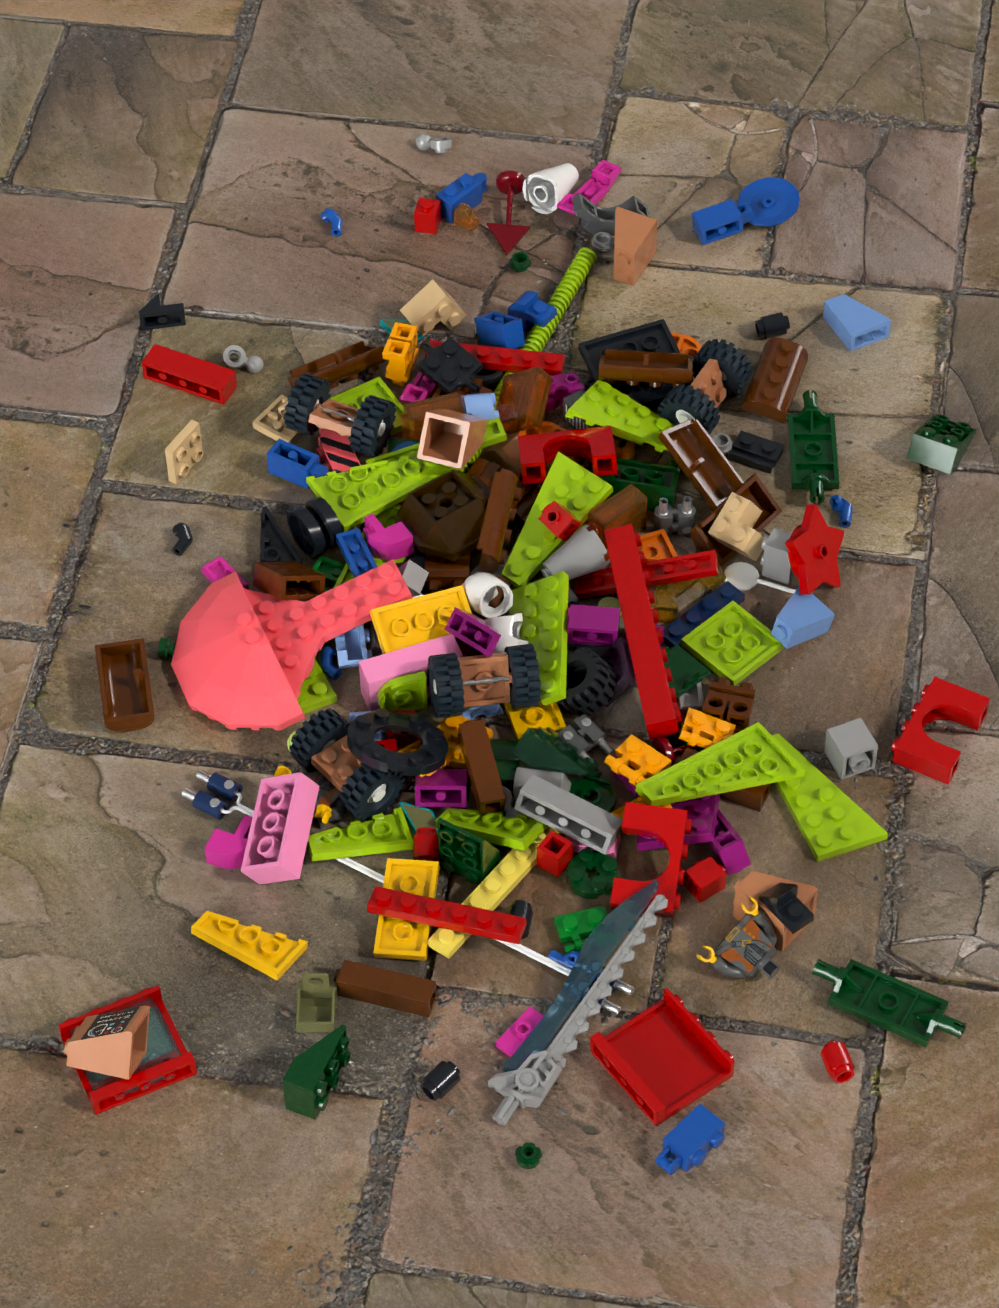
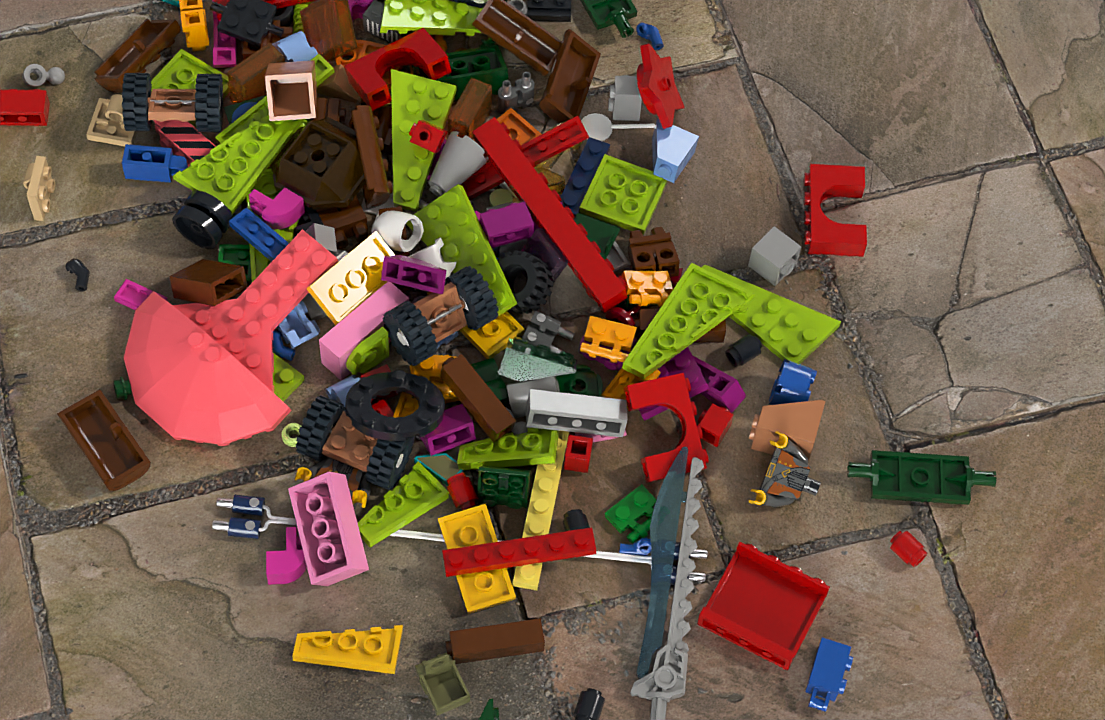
camera: 30 degrees left, 10 degrees up
(273, 541) = (170, 249): black wing -> none
(518, 1031) = (632, 633): dark pink plate -> none
(592, 861) = (606, 467): dark green plate -> none
(735, 526) = (576, 86): tan brick -> none
(773, 823) = (743, 350): none -> black brick
(786, 906) = (807, 427): black slope -> none
(802, 865) = (792, 383): none -> blue brick

